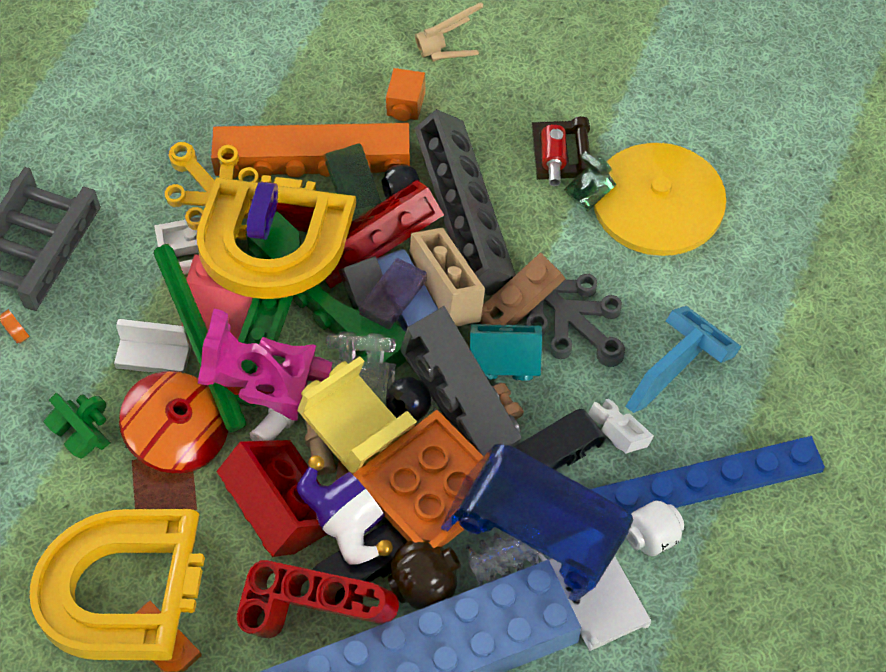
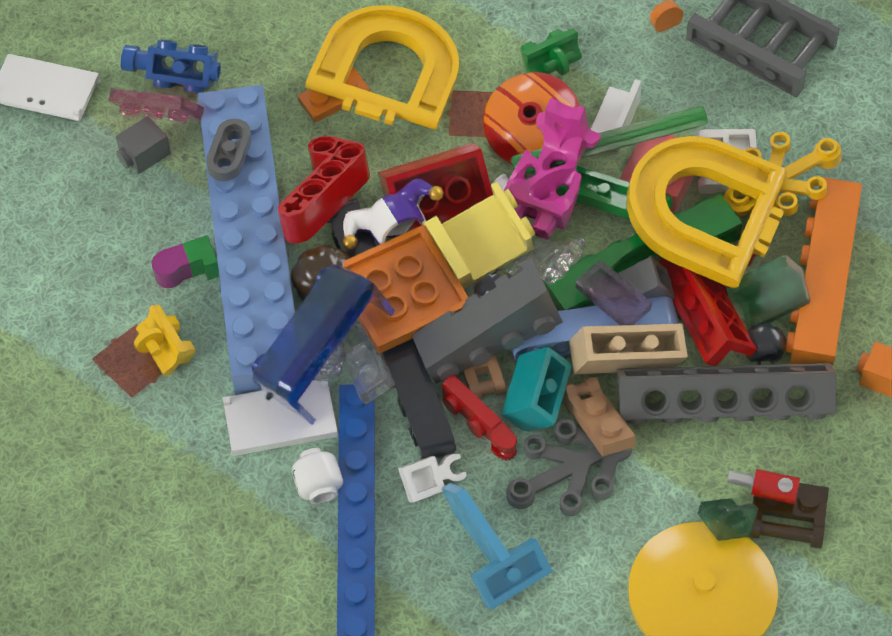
camera: 105 degrees right, 0 degrees up
(262, 210) = (720, 187): dark purple beam -> none
(548, 395) = (480, 418): none -> red hinge

